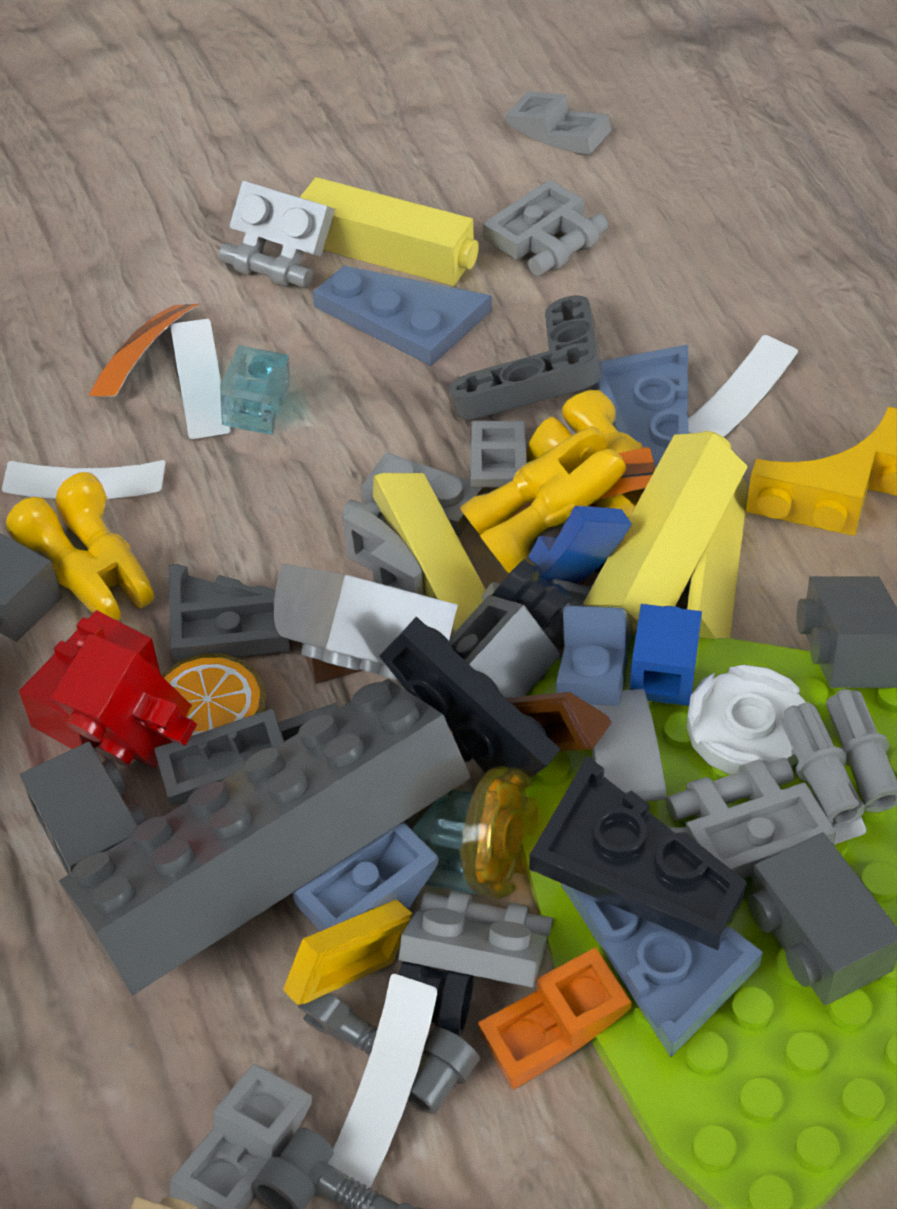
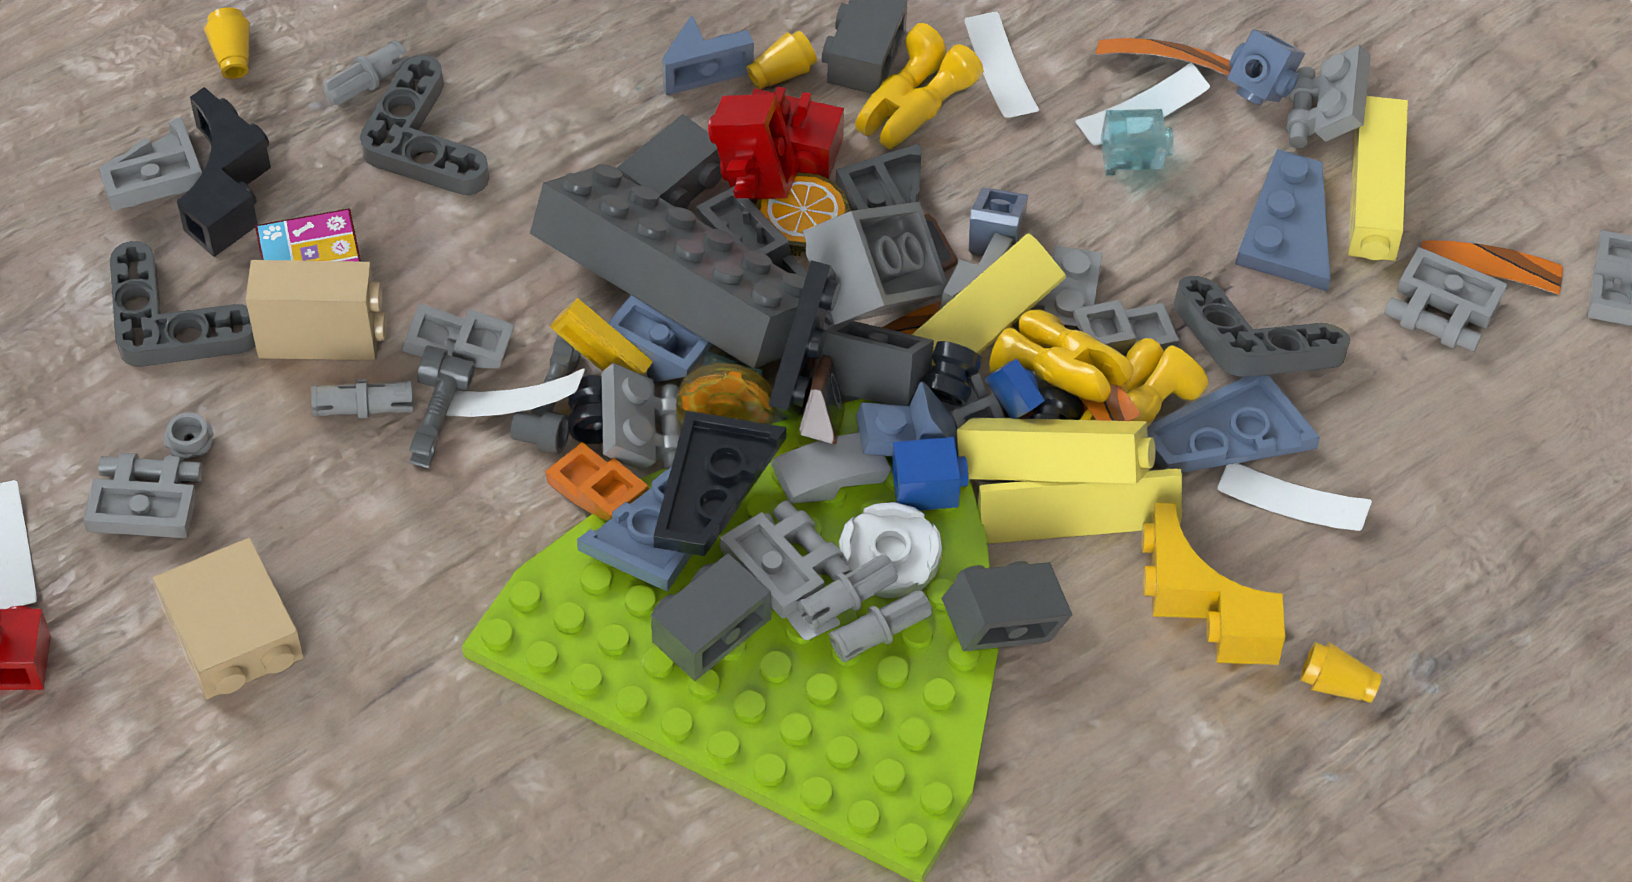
camera: 70 degrees right, 5 degrees up
(216, 266) = (1265, 67): none -> sand blue brick
(311, 517) = (995, 213): none -> sand blue slope
(506, 190) = (1501, 263): none -> orange sticker

